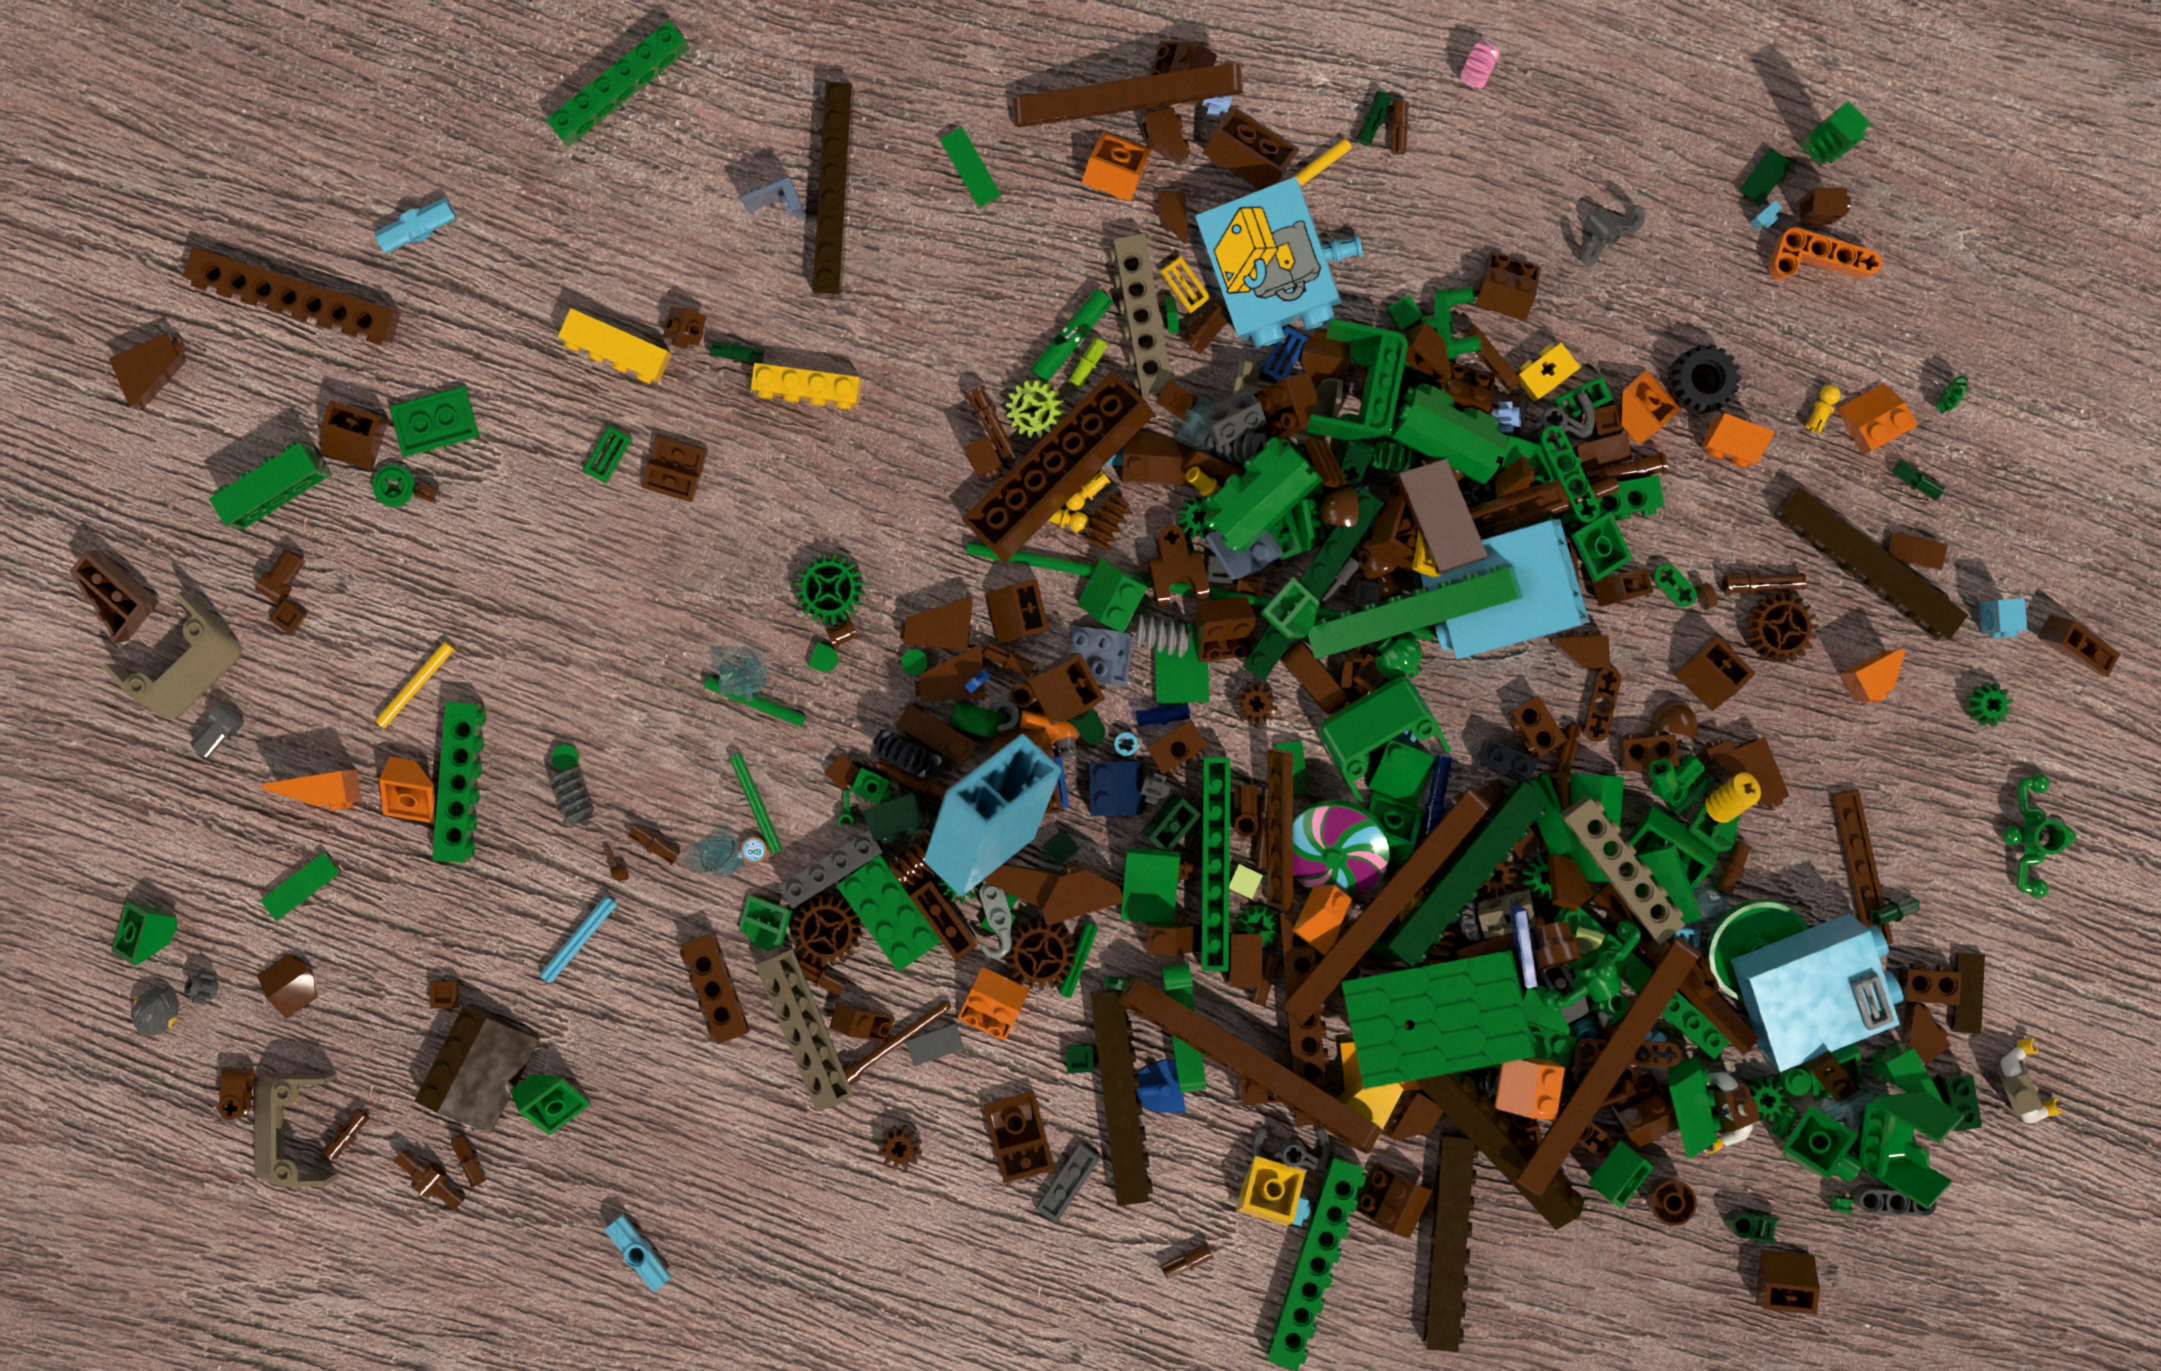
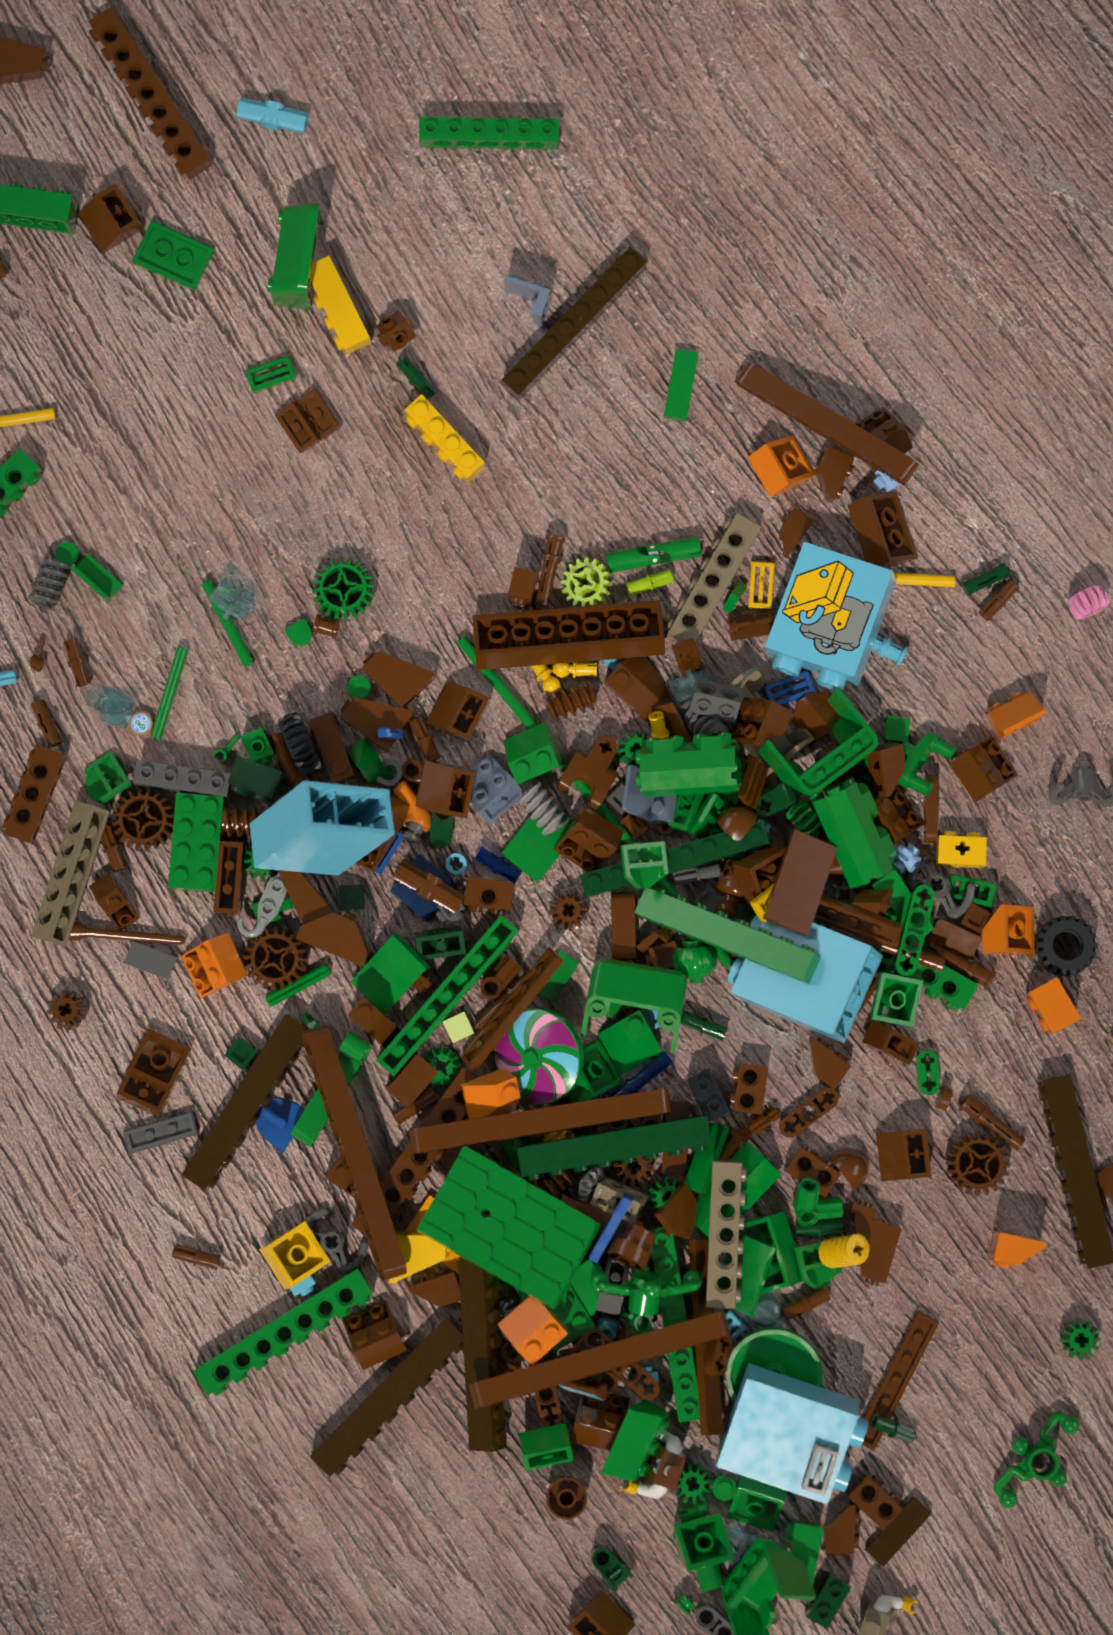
camera: 40 degrees right, 5 degrees down
(381, 486) = (100, 269): green gear -> none
(426, 493) = (127, 299): reddish brown bush -> none
(541, 332) = (295, 255): none -> green windscreen
(609, 756) = (97, 578): none -> green panel
(672, 918) = (46, 723): none -> reddish brown pin
(842, 771) = (246, 720): reddish brown tile -> none
(1122, 785) = (428, 886): none -> reddish brown piece
(1454, 704) = (703, 1025): none -> dark green axle
(1498, 215) = (1015, 715): none -> orange slope
(1588, 940) = (659, 1262): yellowish green tile -> none
(1833, 1076) = (752, 1504): dark brown tile -> none

